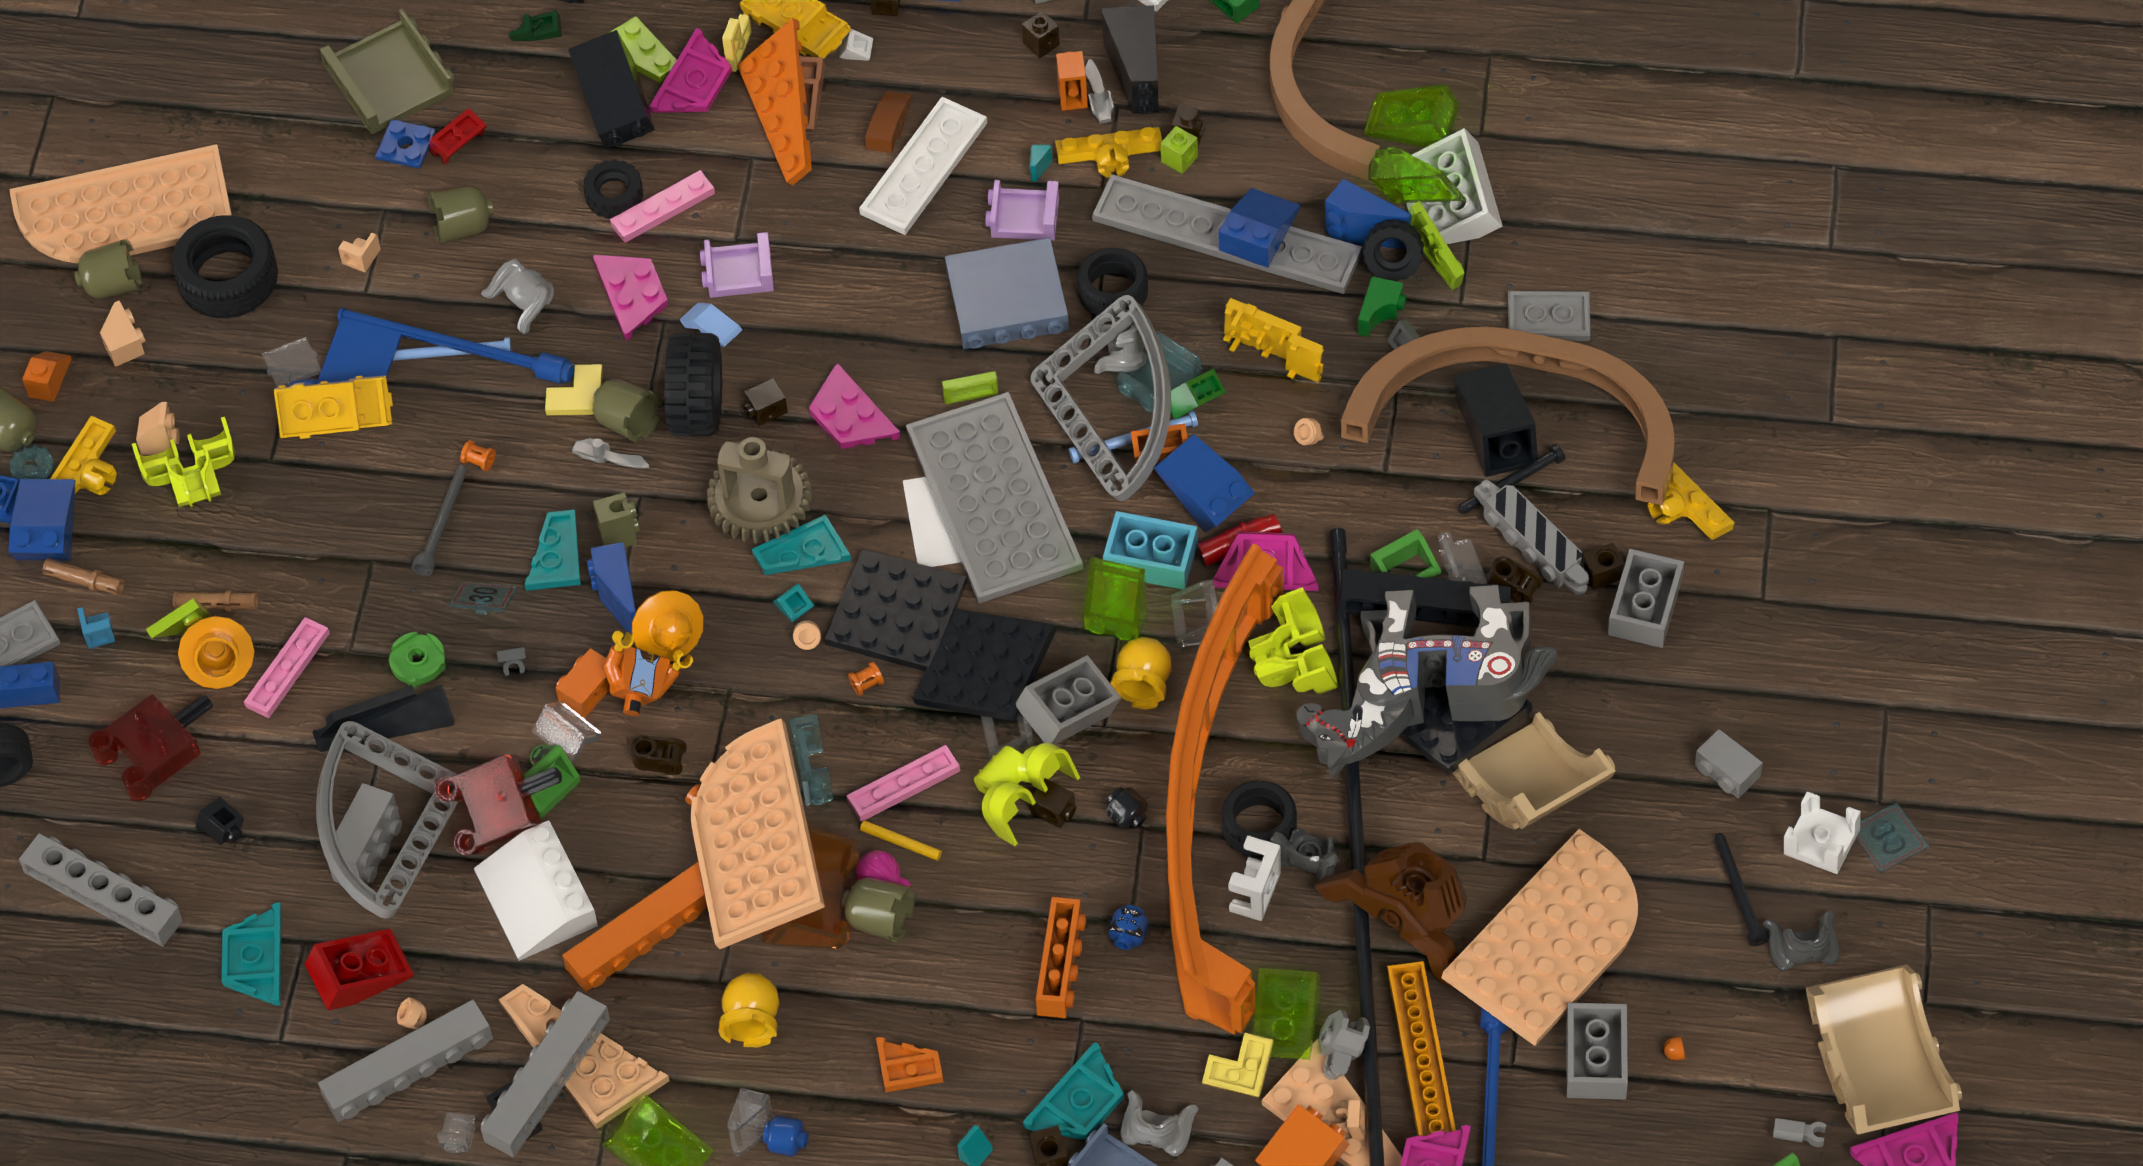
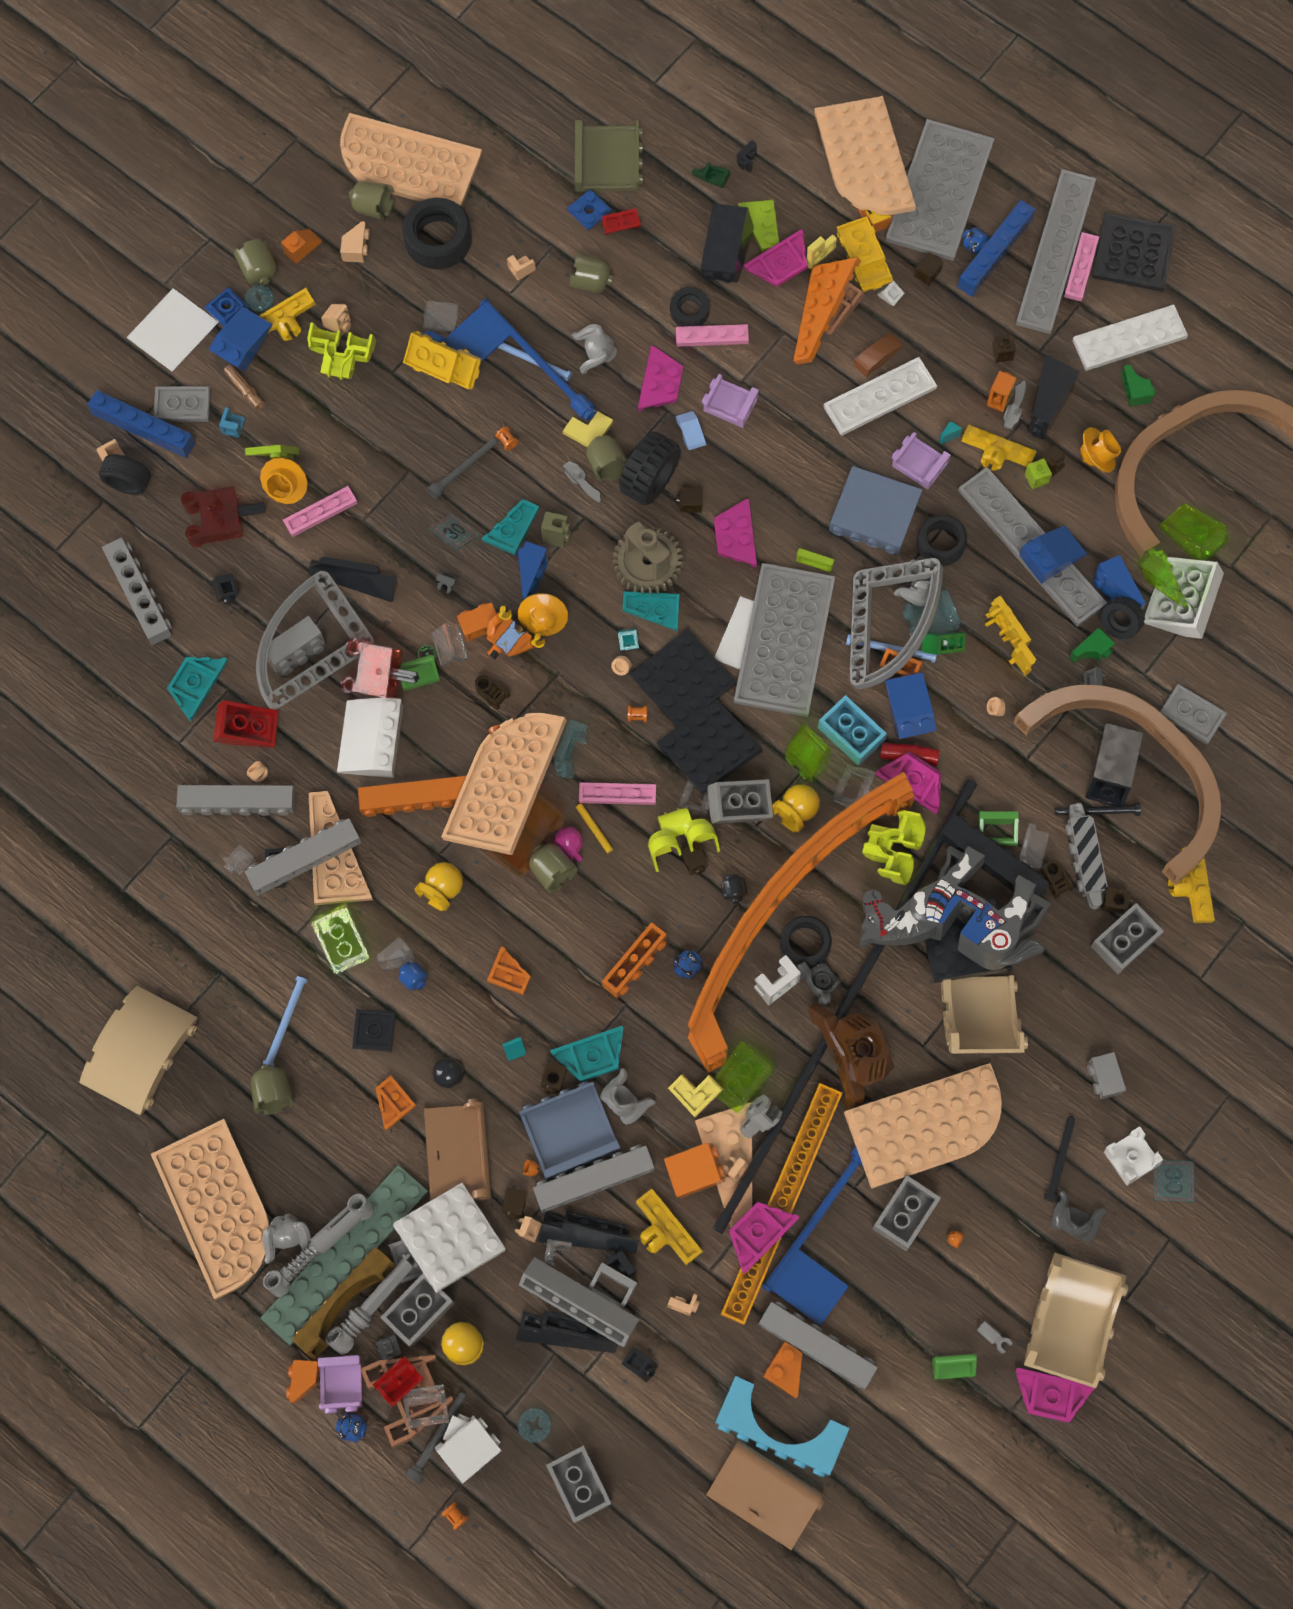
camera: 30 degrees right, 15 degrees up
(227, 600) = (312, 449): medium nougat pin -> none
(417, 672) = (398, 558): bright green plate -> none
(1235, 84) = (1100, 449): none -> light orange helmet
(1436, 248) = (1150, 631): lime wing -> none

